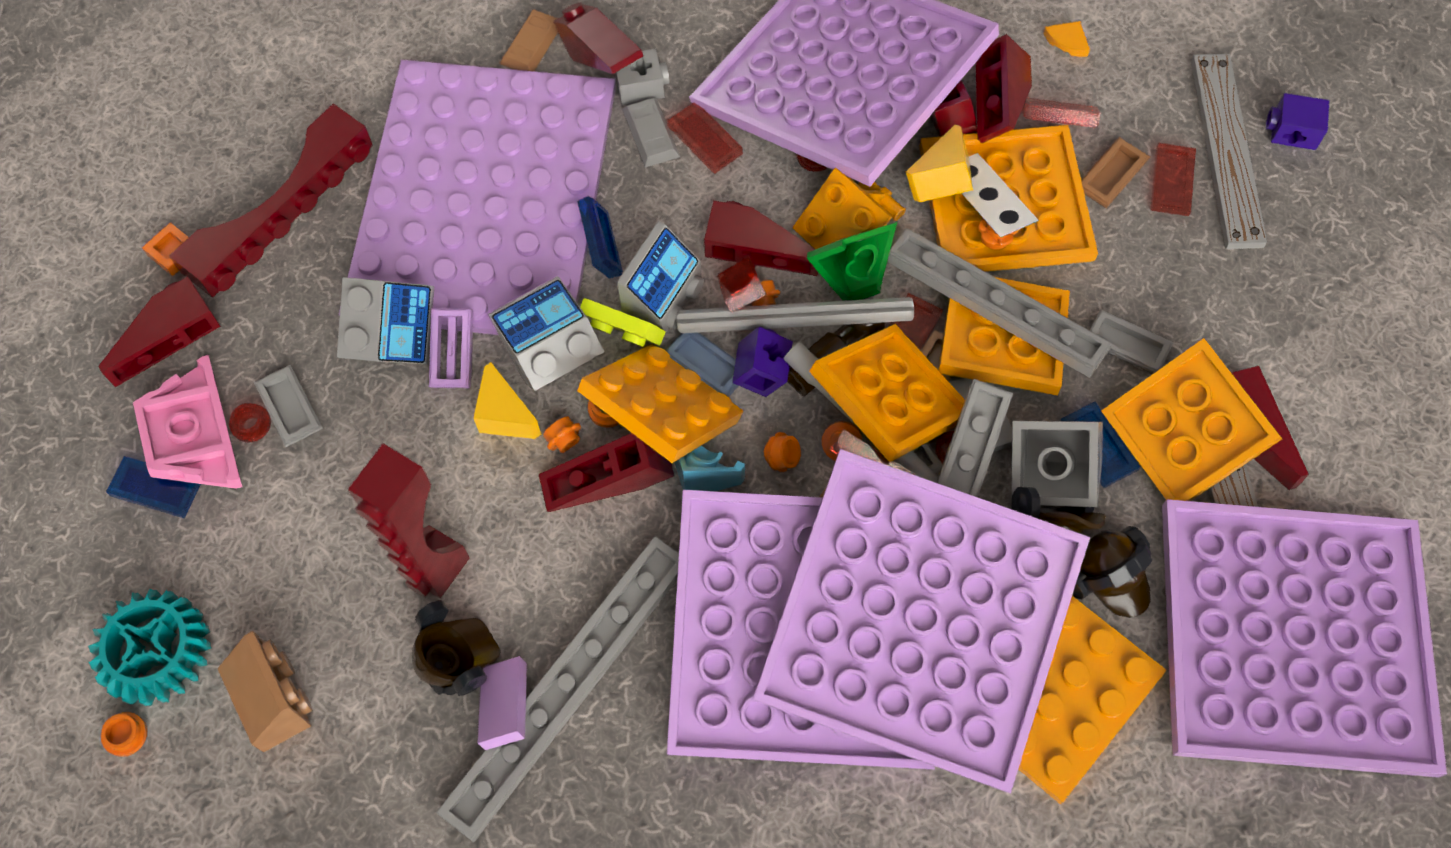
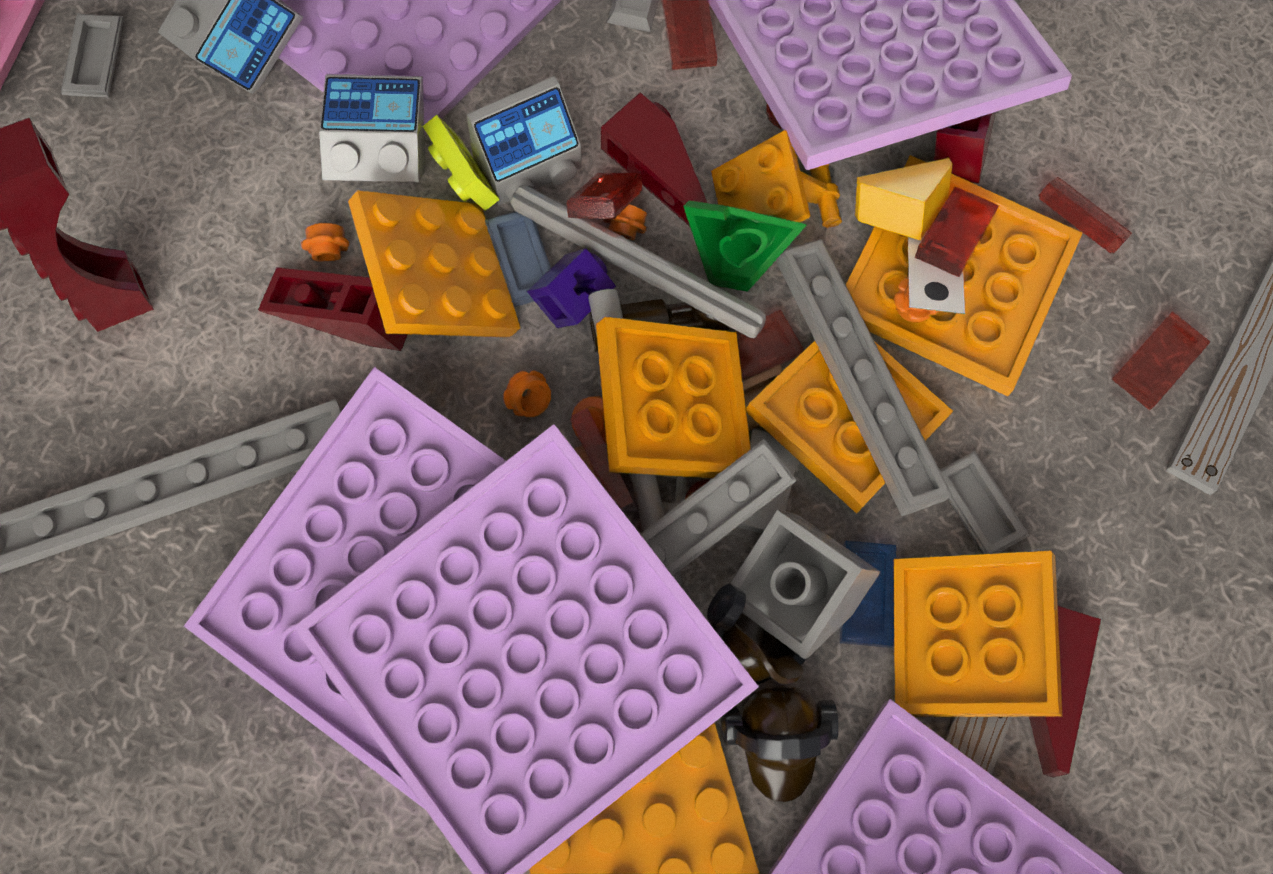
camera: 25 degrees right, 5 degrees up
(242, 414) = (41, 39): clear red plate -> none
(457, 644) = (57, 388): dark brown cap -> none
(466, 348) = (287, 93): lavender tile -> none
(501, 410) = (282, 176): yellow slope -> none
(503, 703) = (68, 471): lavender tile -> none
(600, 237) = (504, 61): clear blue tile -> none
(702, 472) = (431, 365): medium azure slope -> none
(992, 170) = (956, 231): none -> clear red tile
(1001, 87) = (1037, 148): dark red slope -> none
(1068, 38) = (1154, 142): light orange tile -> none
(1113, 172) = (1098, 313): medium nougat tile -> none

